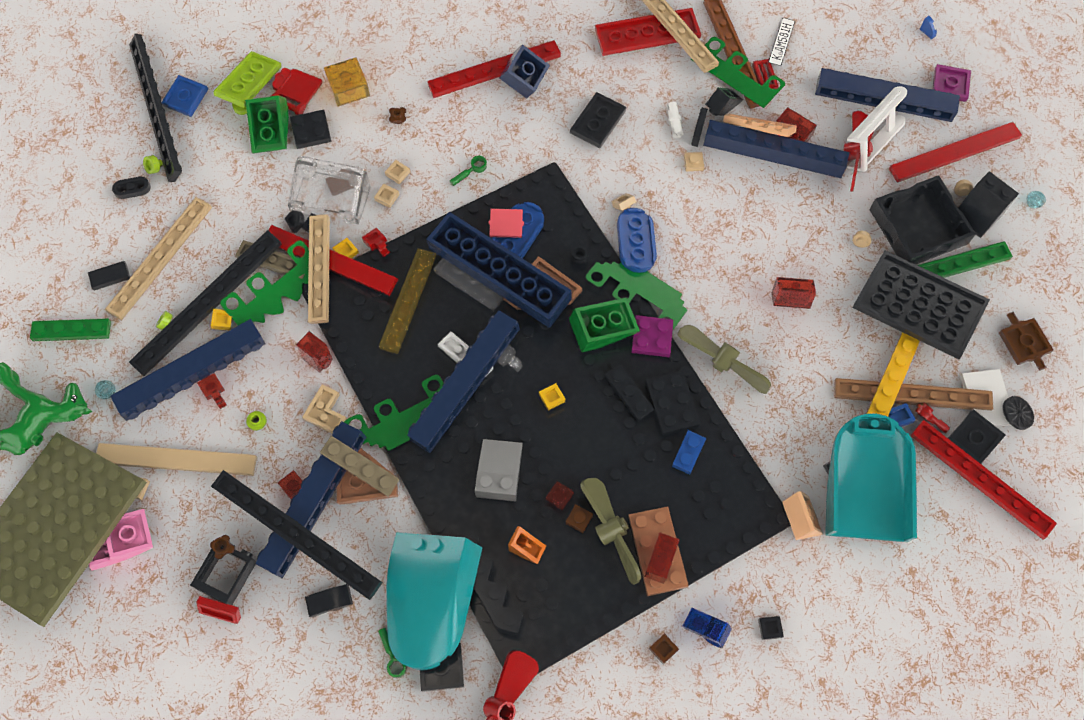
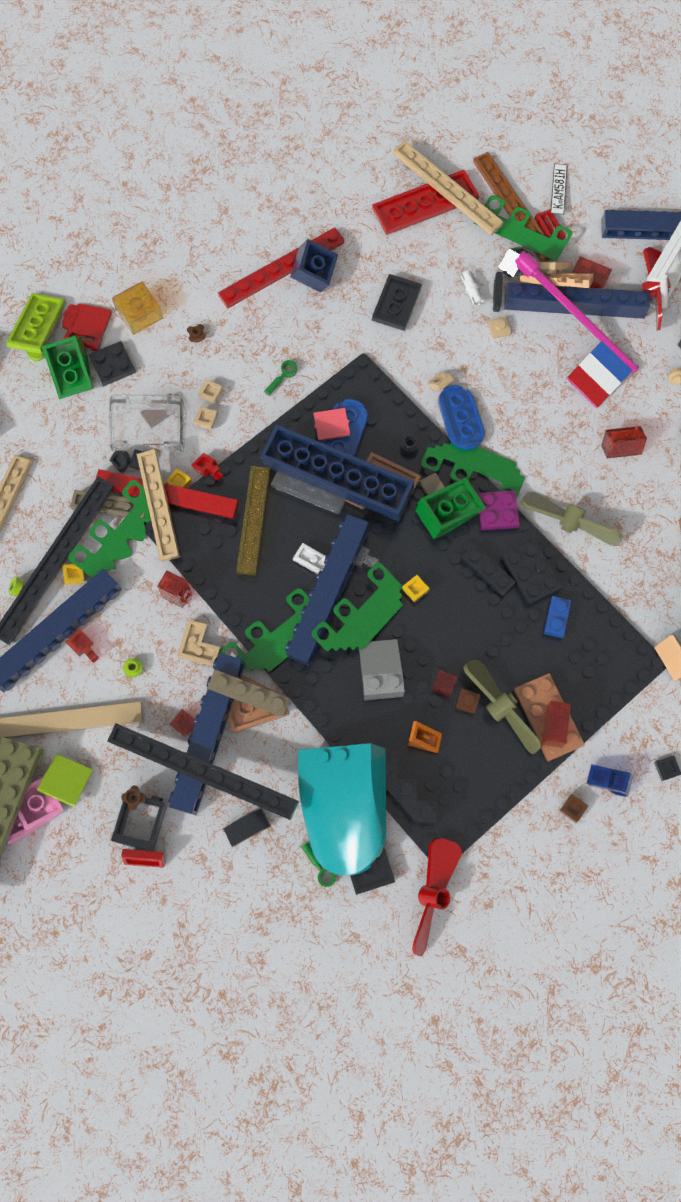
camera: 10 degrees left, 5 degrees up
(161, 517) = (65, 780): none -> lime tile
(494, 420) = (369, 619): none -> green piece
(591, 297) = (431, 484): none -> dark tan tile
(755, 112) = (555, 267): none -> tan plate
(791, 215) = (605, 365): none -> flag

